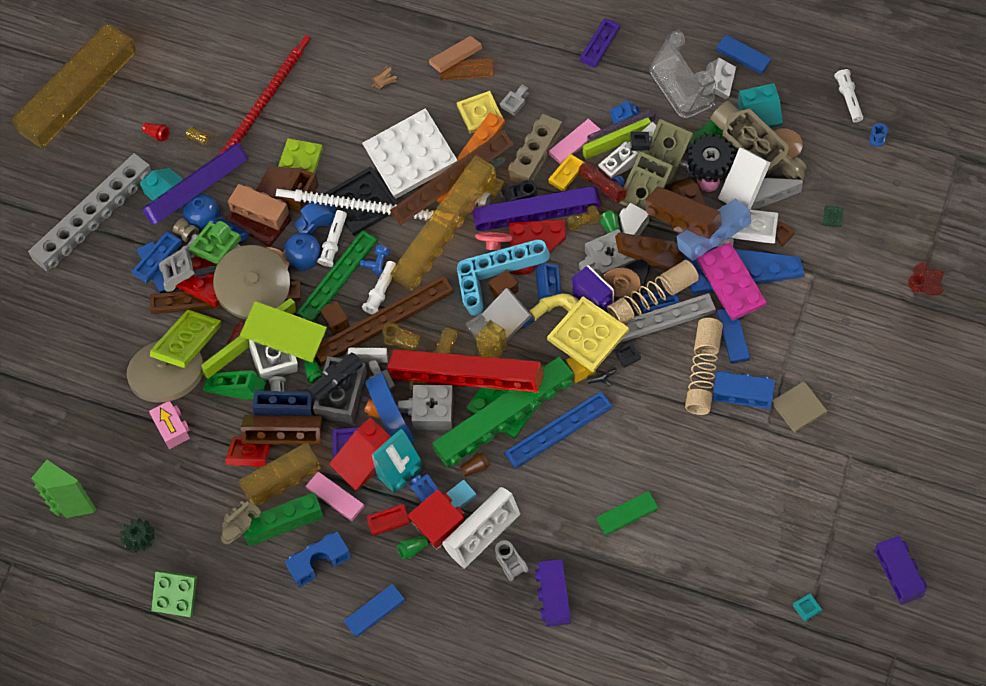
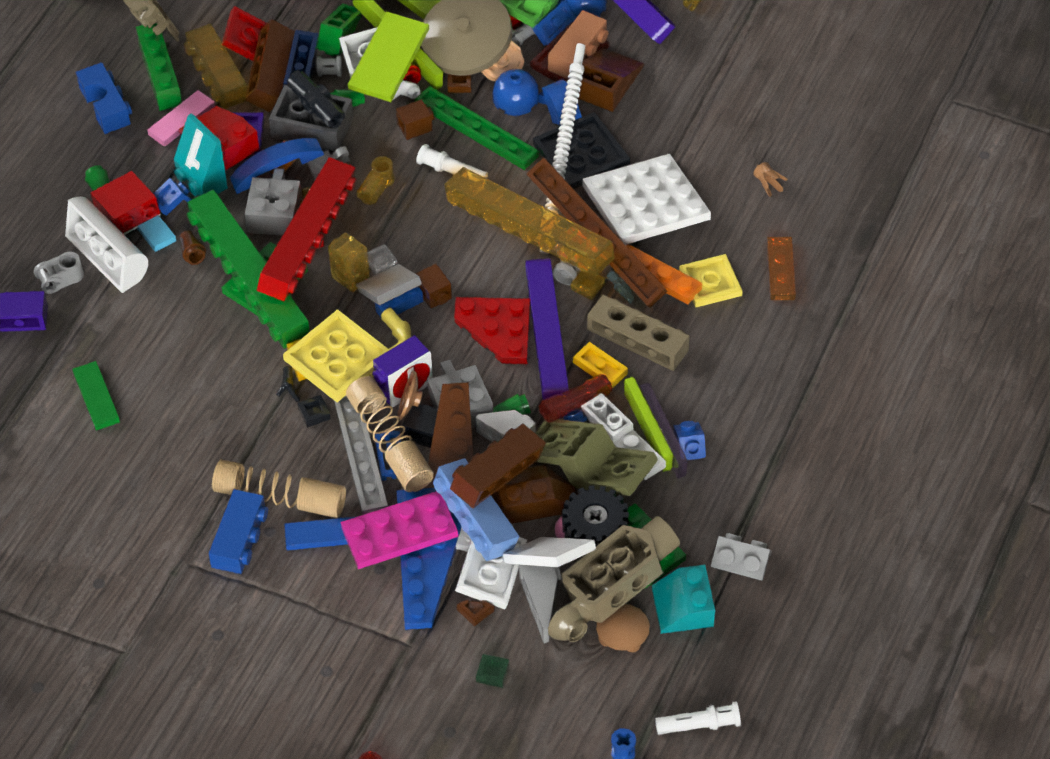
camera: 90 degrees right, 10 degrees down
(272, 87) = (817, 92): red hose -> none
(301, 155) = (654, 95): lime plate -> none
(330, 246) = (516, 116): white pin -> none
(369, 354) = (358, 148): white tile -> none
(374, 610) = (32, 149): blue tile -> none
(381, 252) = (502, 168): blue piece -> none
(388, 519) = (141, 163): red tile -> none
(393, 313) = (406, 168): reddish brown plate -> none
(447, 341) = (359, 226): clear yellow piece -> none
(455, 54) = (802, 253): nougat tile -> none
(493, 239) = (502, 278): coral piece -> none
(495, 268) = (452, 252): medium azure beam -> none
(515, 101) = (720, 314): light grey plate -> none
(519, 190) = (571, 313): black piece -> none
(548, 280) = (440, 338): blue slope -> none
(558, 430) = (225, 335): blue tile -> none
(573, 142) = (646, 372): bright pink tile -> none
(577, 221) = (526, 383): clear yellow piece -> none
(600, 42) = (814, 419): dark purple plate -> none
(639, 141) = (627, 434): black plate -> none
(684, 90) = (772, 488): clear windscreen -> none
(743, 54) = (785, 594): blue tile -> none
(799, 407) = (204, 597): dark tan tile -> none

